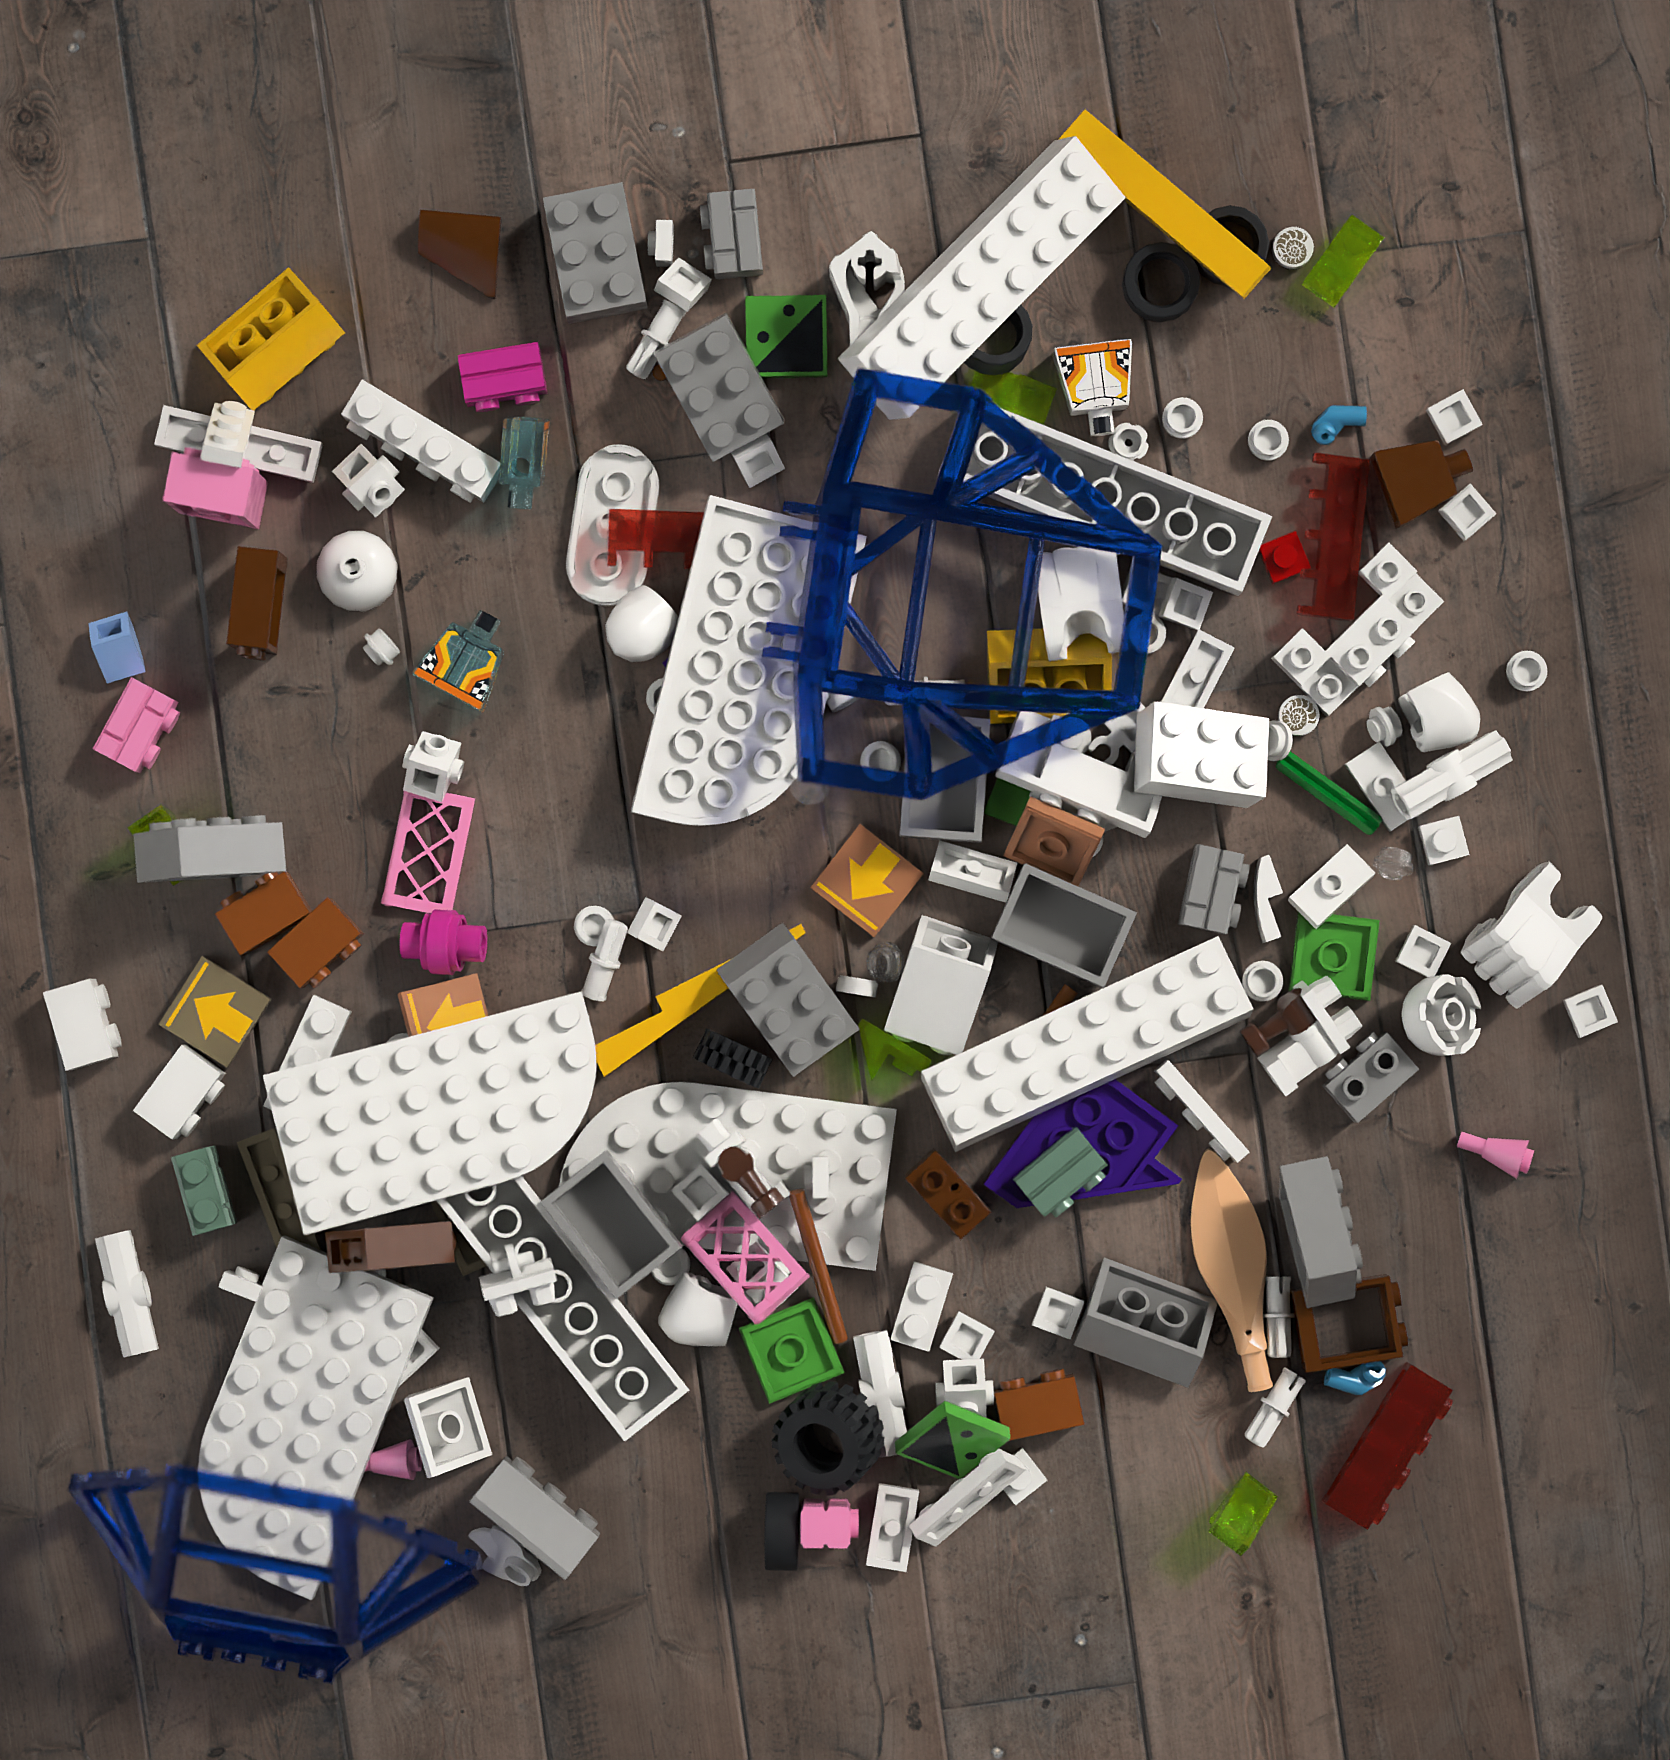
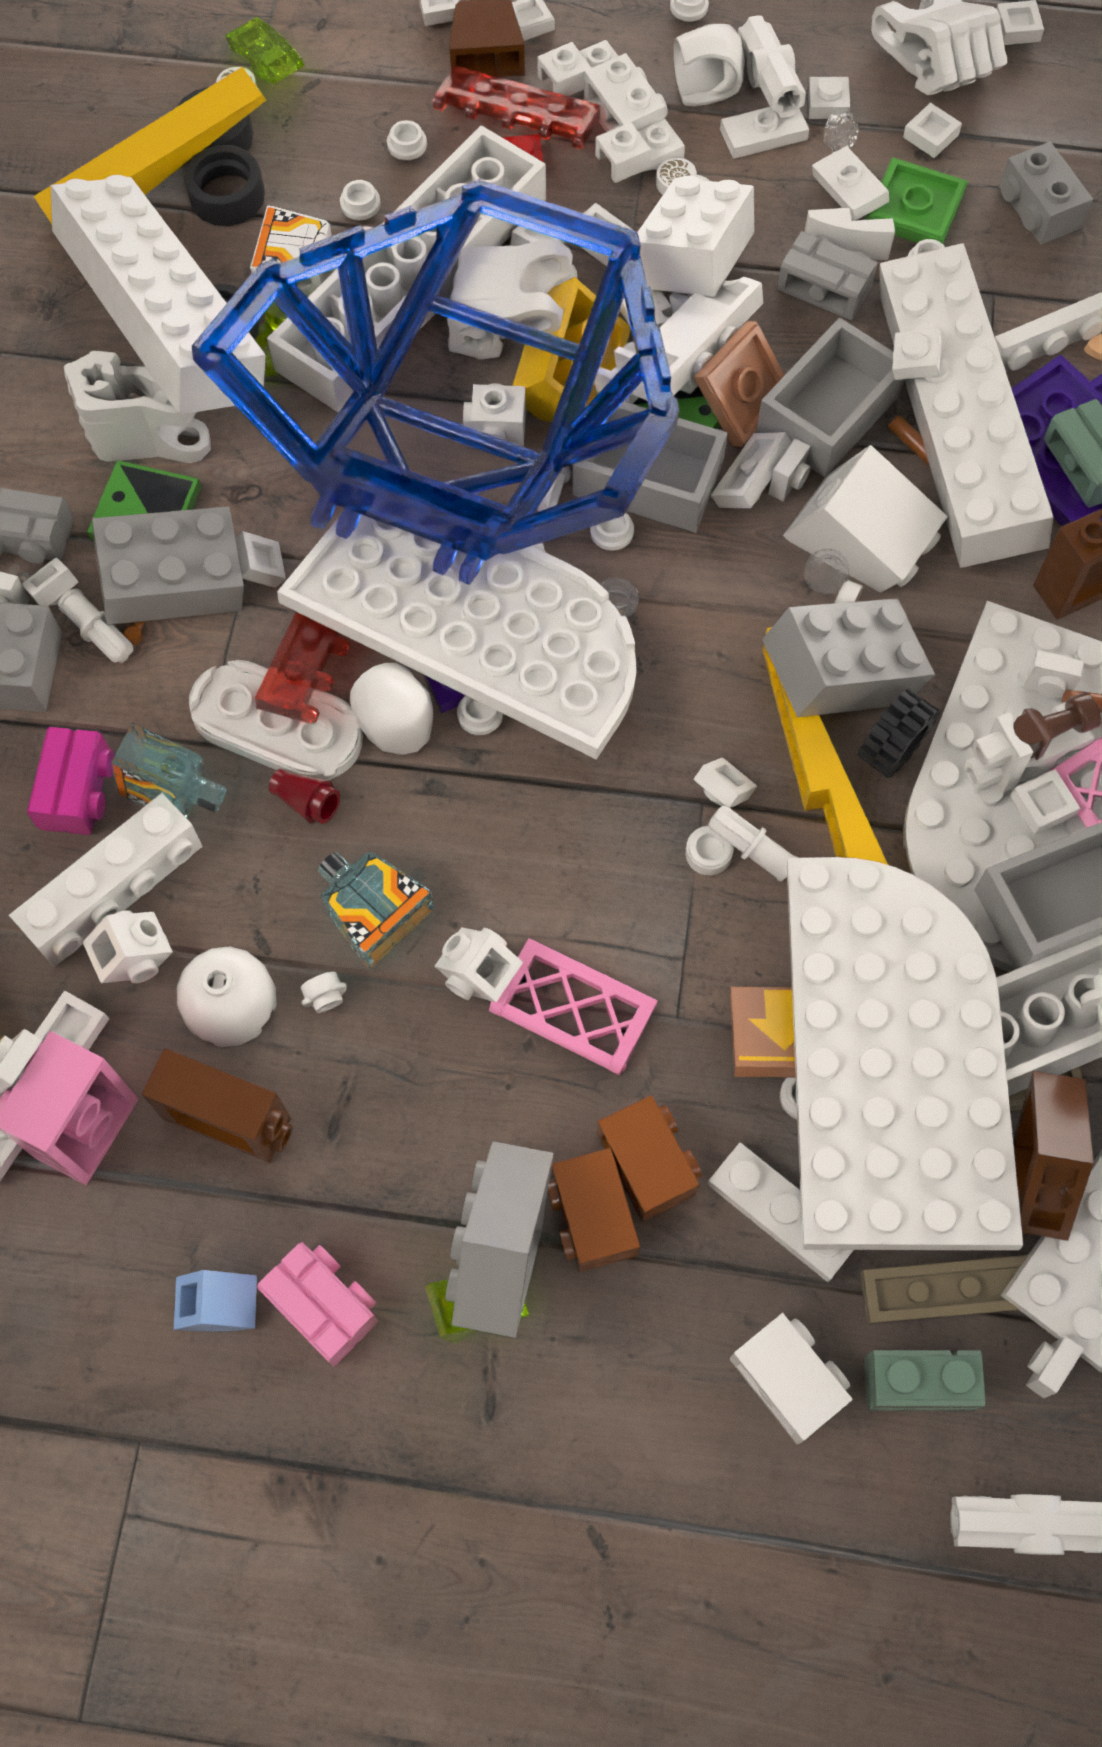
camera: 75 degrees left, 20 degrees down
(82, 1023) = (673, 1482): white brick -> none
(215, 1011) = (698, 1308): dark tan tile -> none
(443, 942) = (686, 1007): dark pink piece -> none
(545, 579) = (308, 796): none -> dark red cone
(867, 880) = (733, 573): nougat tile -> none
(879, 1044) = (923, 589): clear neon green slope -> none
(960, 640) = (497, 411): none -> white brick
(981, 907) = (790, 471): none -> white plate
(1103, 991) = (917, 354): none -> white plate
(1312, 1033) = (993, 232): white hips -> none
(1329, 793) = (770, 161): green axle -> none
(1334, 419) = (408, 89): dark azure arm -> none
(1384, 725) = (707, 111): white plate -> none
(1441, 1015) = (1000, 122): white cylinder -> none

